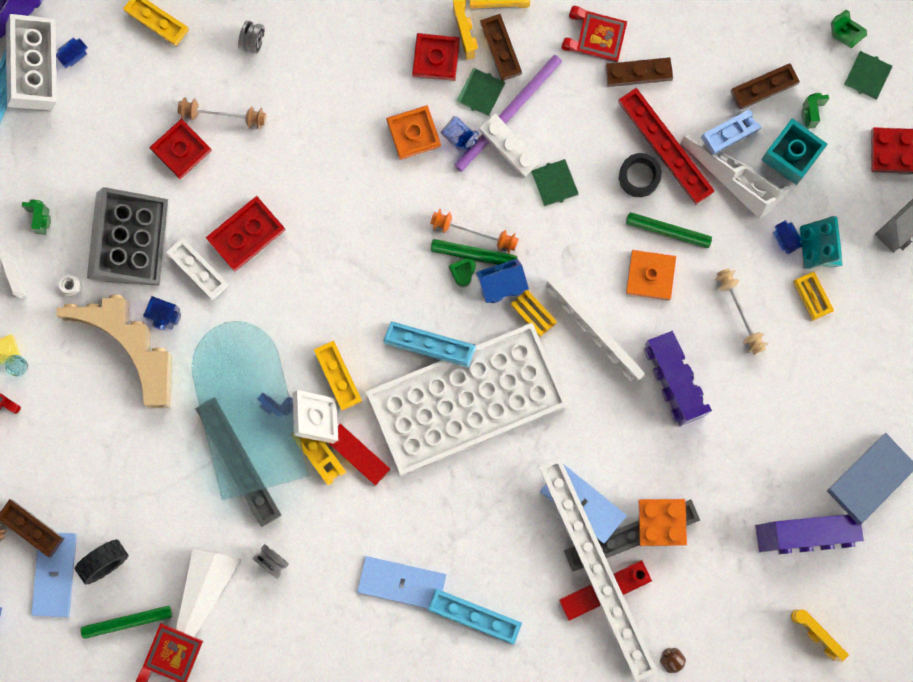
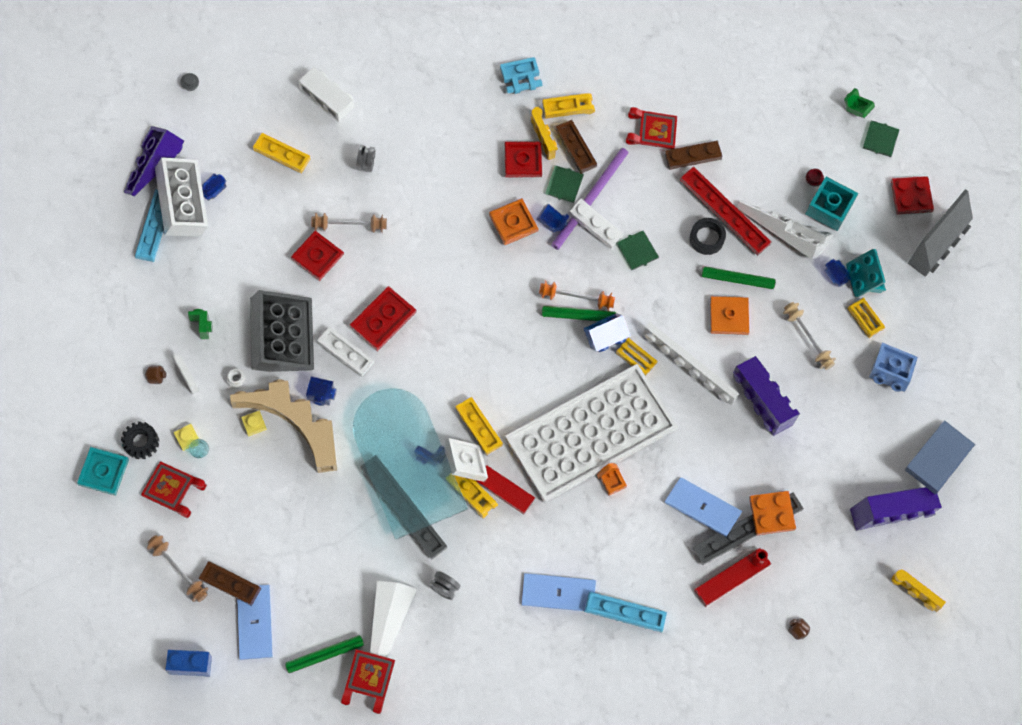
camera: 15 degrees left, 10 degrees down
(82, 341) = (254, 423): none -> light yellow plate
(101, 561) = (298, 602): black tyre -> none
(429, 344) = (553, 391): medium azure tile -> none
(462, 271) = (571, 330): green tile -> none
(483, 456) = (612, 478): none -> orange tile
(597, 569) = (725, 557): white plate -> none
(730, 132) = (777, 194): light blue plate -> none
(765, 86) = (798, 155): reddish brown plate -> none
(779, 115) = (814, 177): none -> dark red plate
(810, 110) = (839, 170): green bracket -> none
(835, 362) = (893, 367): none -> medium blue plate

